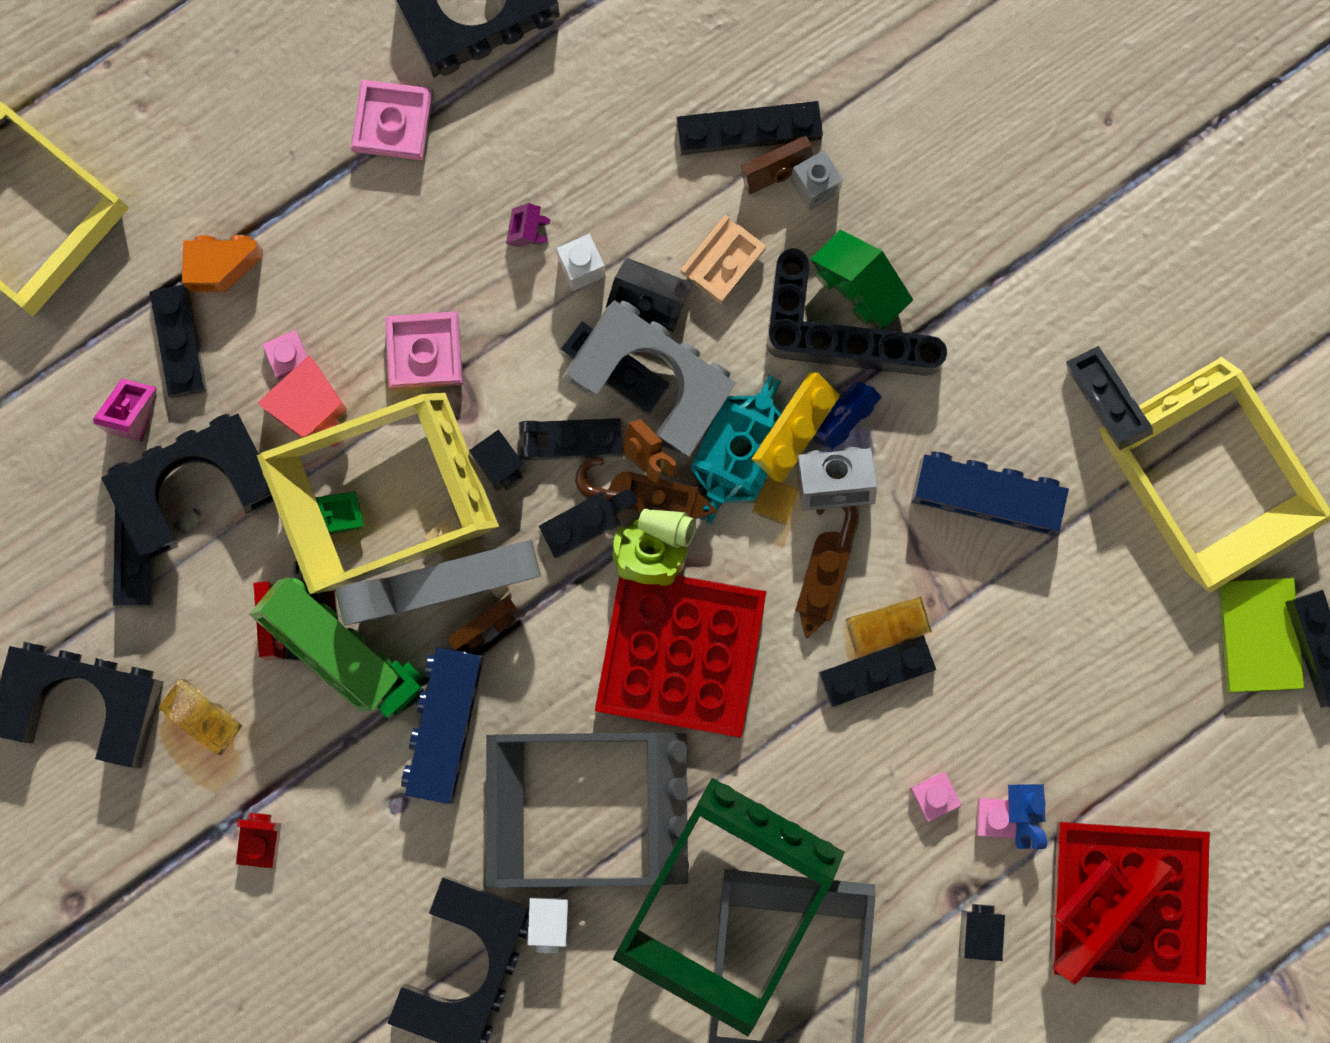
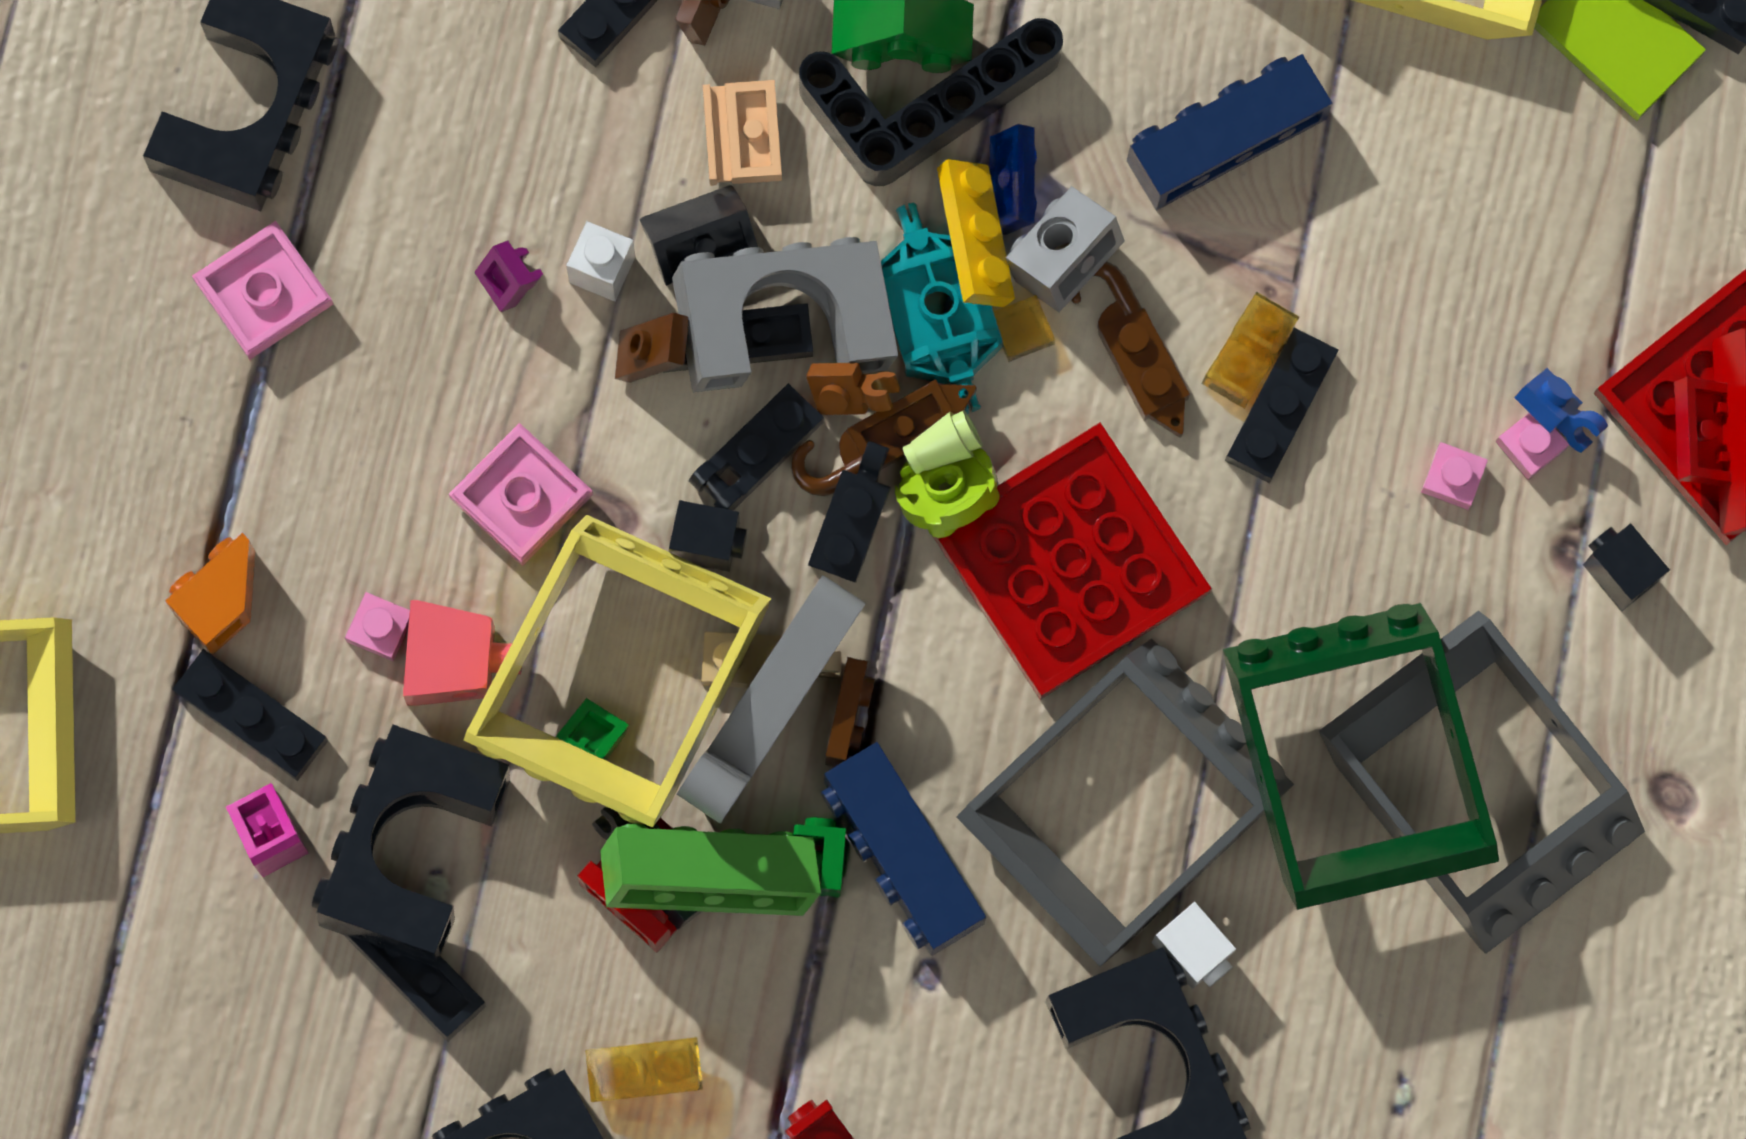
camera: 45 degrees left, 5 degrees down
(562, 333) = (651, 347): none -> reddish brown plate

